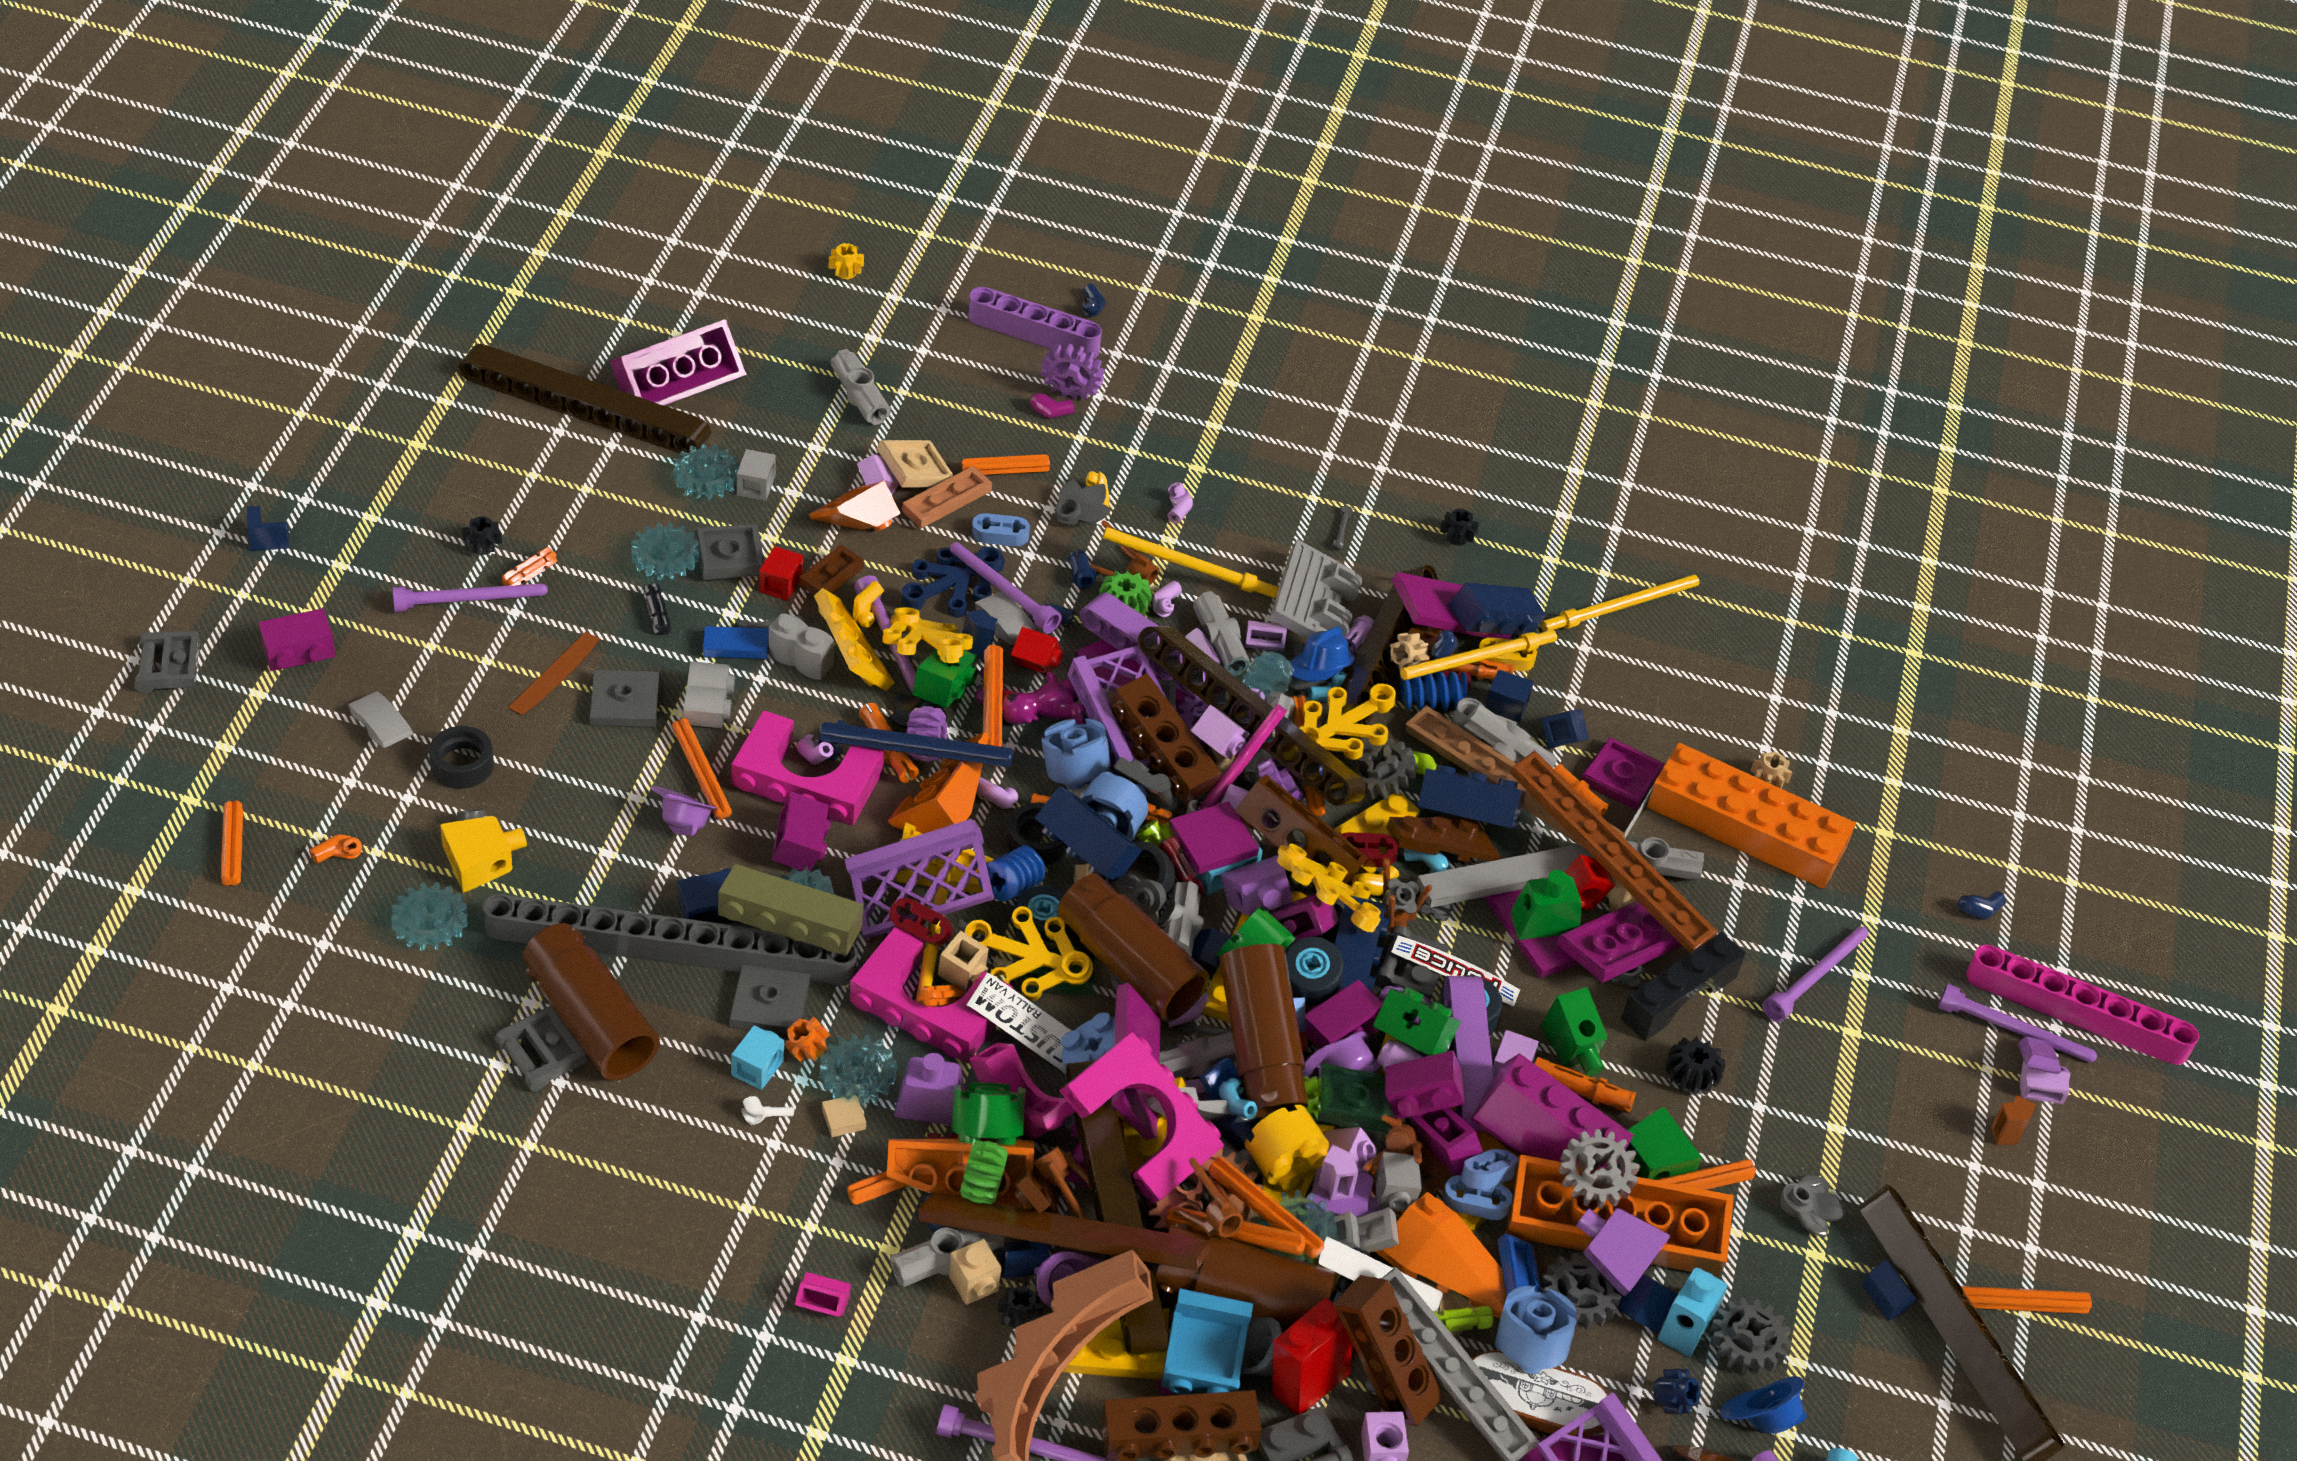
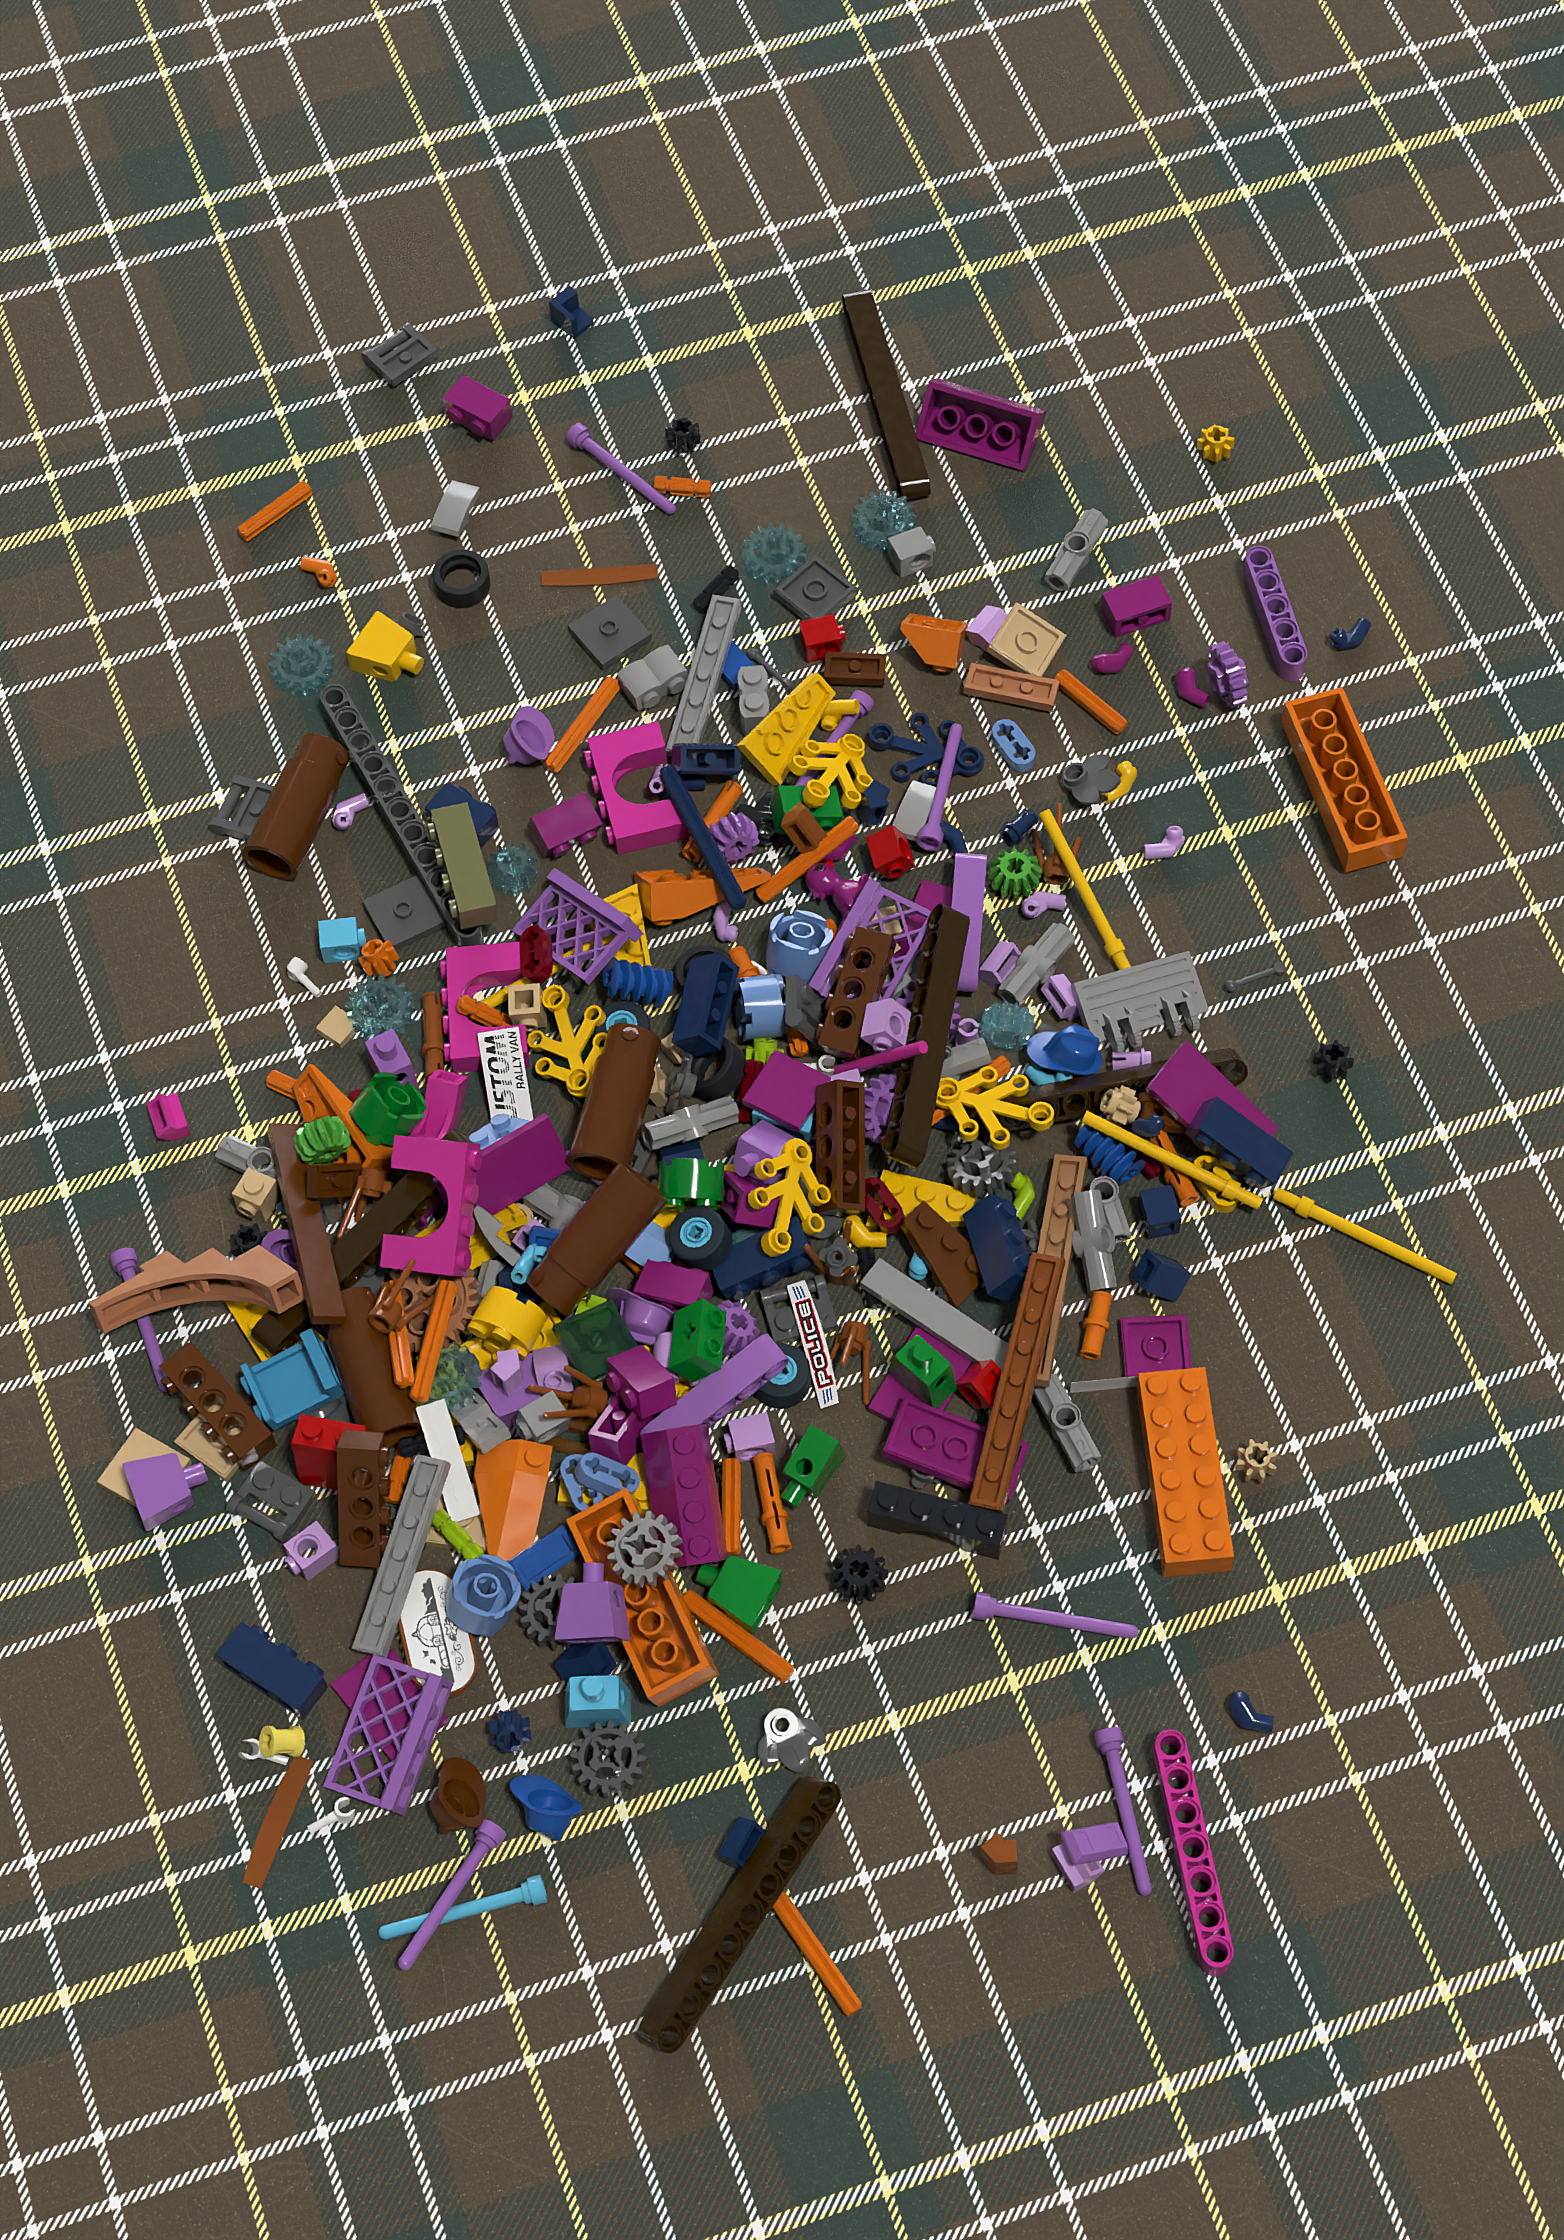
camera: 65 degrees right, 15 degrees up
(618, 968) = (346, 811): none -> lavender arm
(729, 649) = (705, 671): none -> light grey tile
(833, 702) = (706, 759): none -> dark blue brick
(917, 1047) = (433, 1033): none -> dark orange pin
(947, 387) = (1136, 606): none -> magenta brick
(973, 676) = (802, 828): none -> dark orange piece
(982, 432) = (1112, 661): none -> magenta arm
(1223, 373) = (1344, 779): none -> orange brick
(1474, 944) = (852, 1341): none -> dark orange plant

